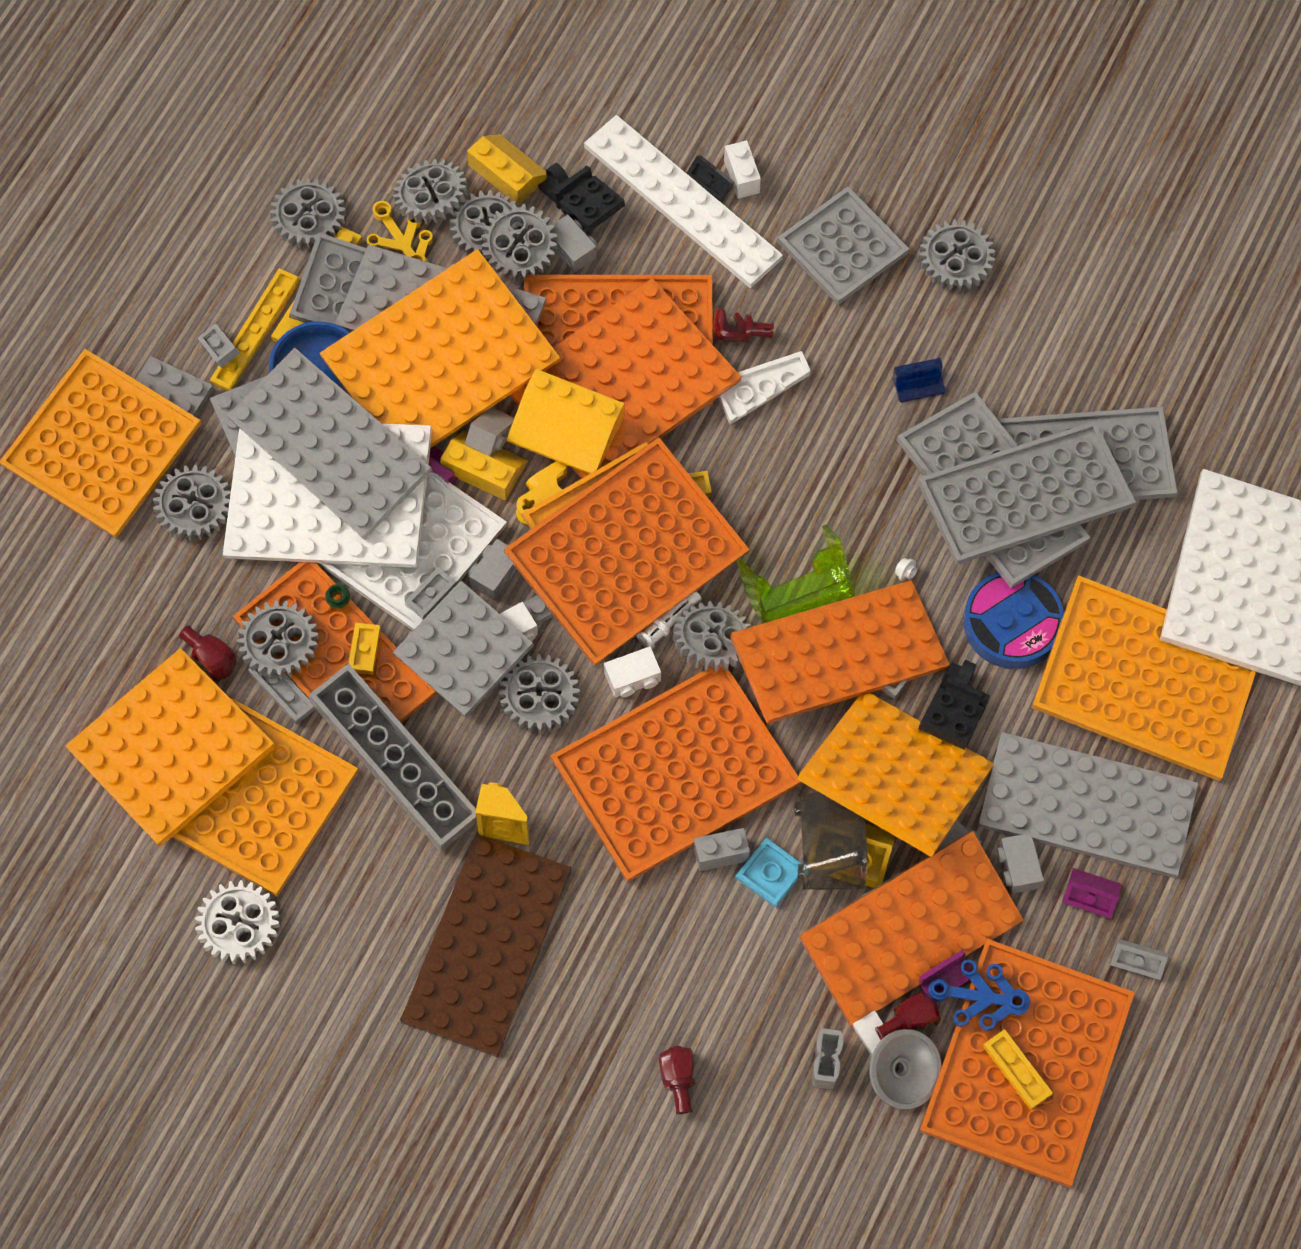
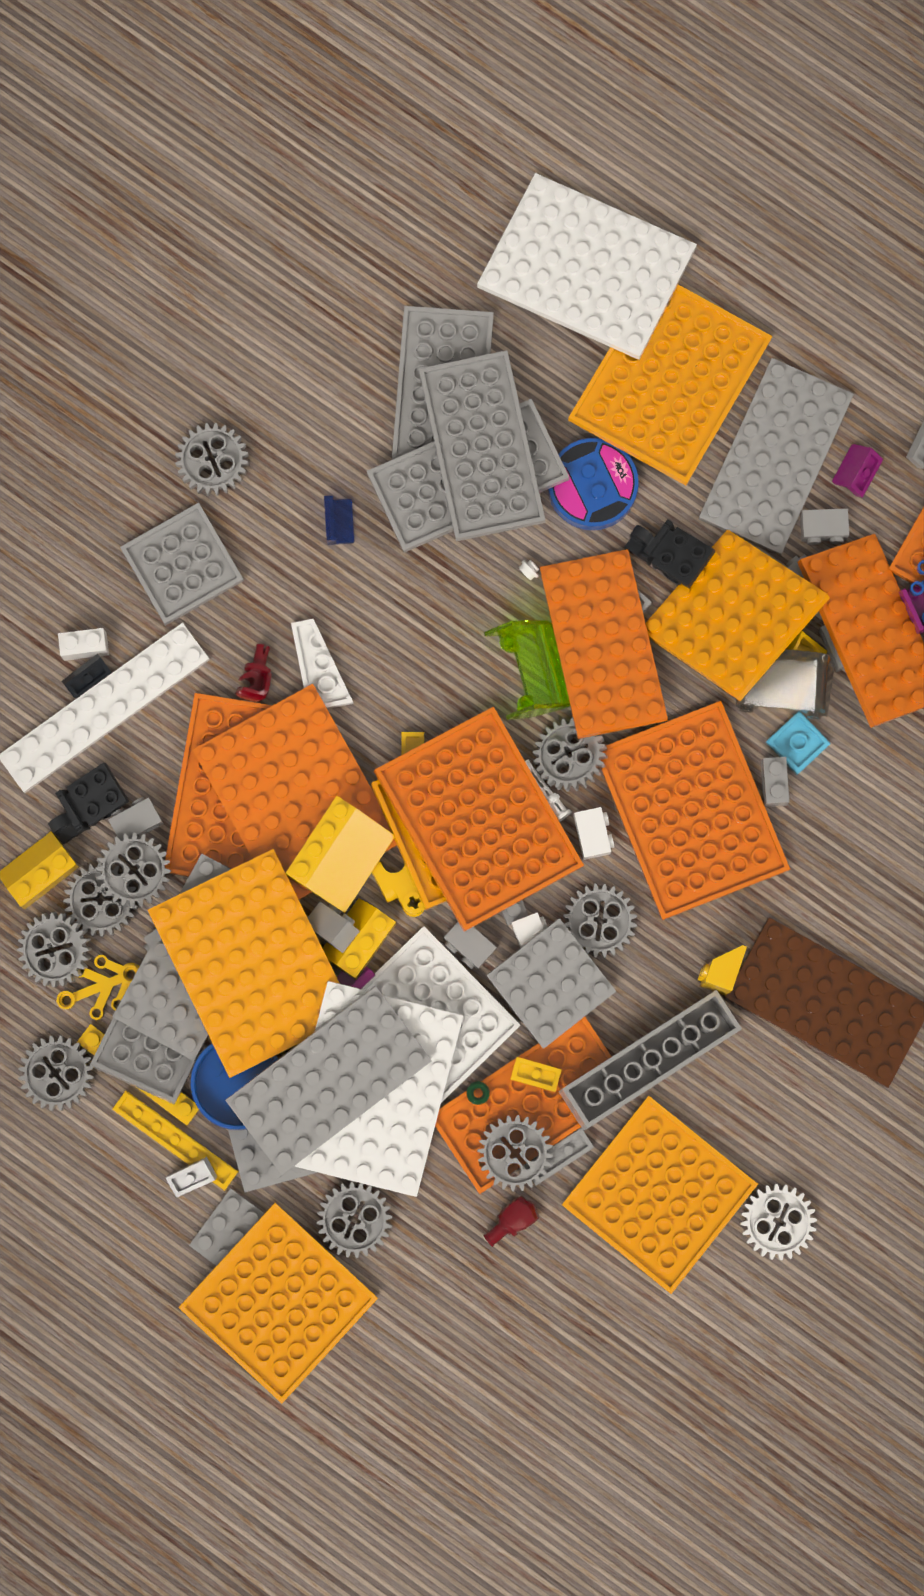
camera: 80 degrees left, 15 degrees up
(170, 747) = (602, 1265): light orange plate -> none
(430, 593) = (490, 1005): light grey plate -> none

